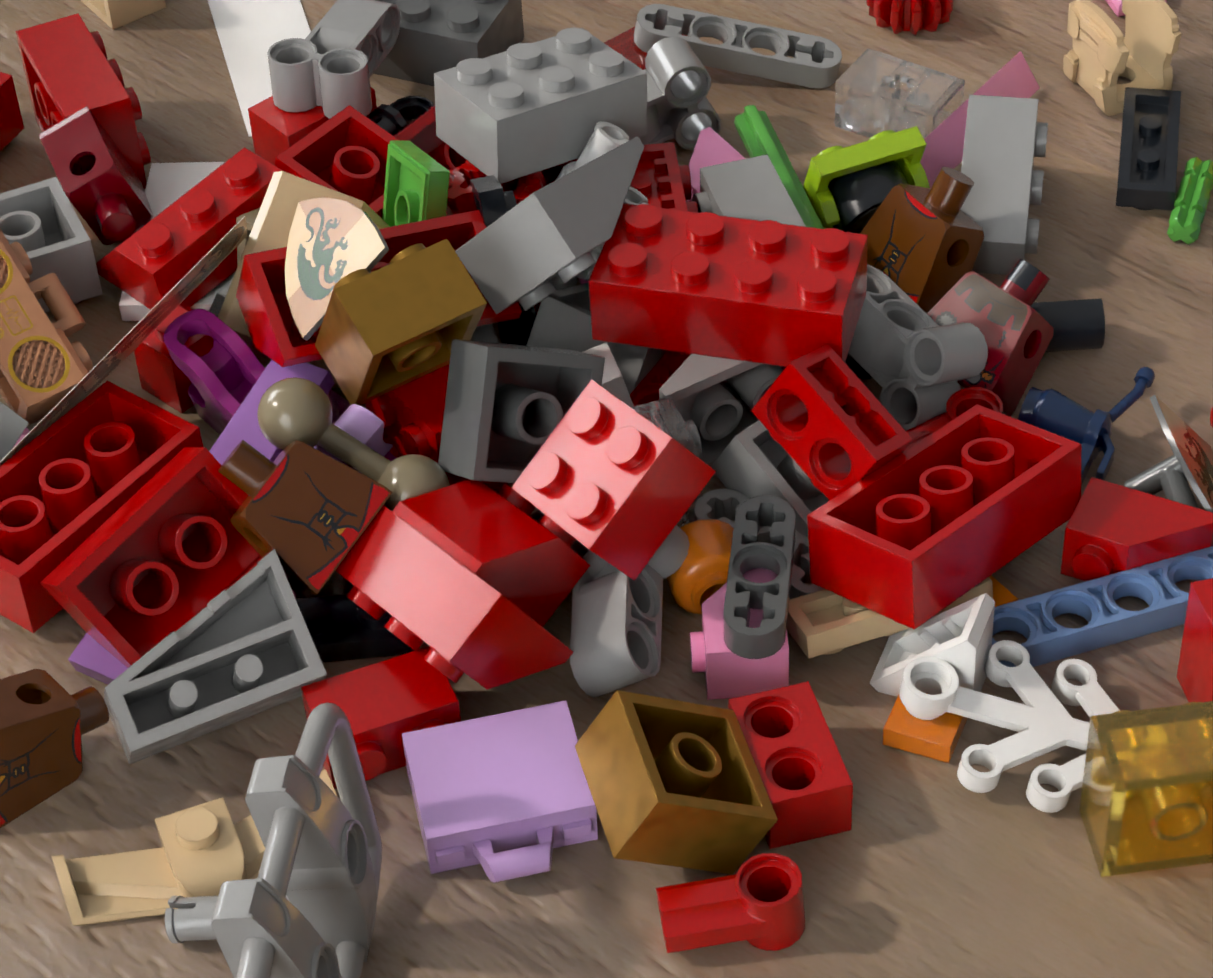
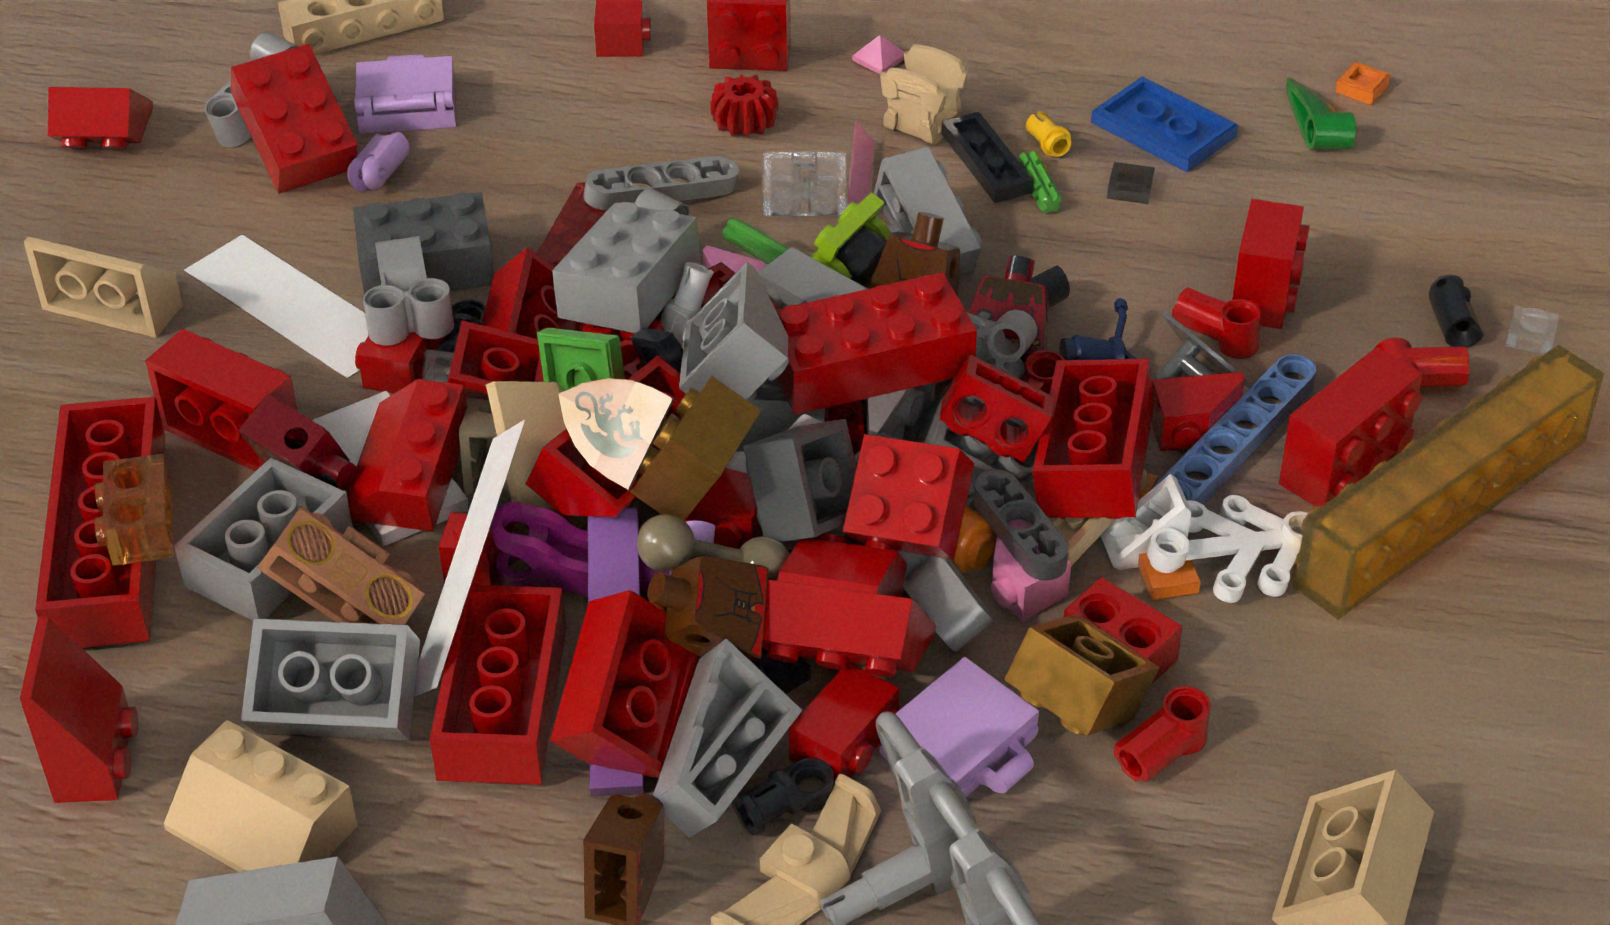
camera: 35 degrees left, 0 degrees up
(230, 759) = (782, 795): none -> black connector

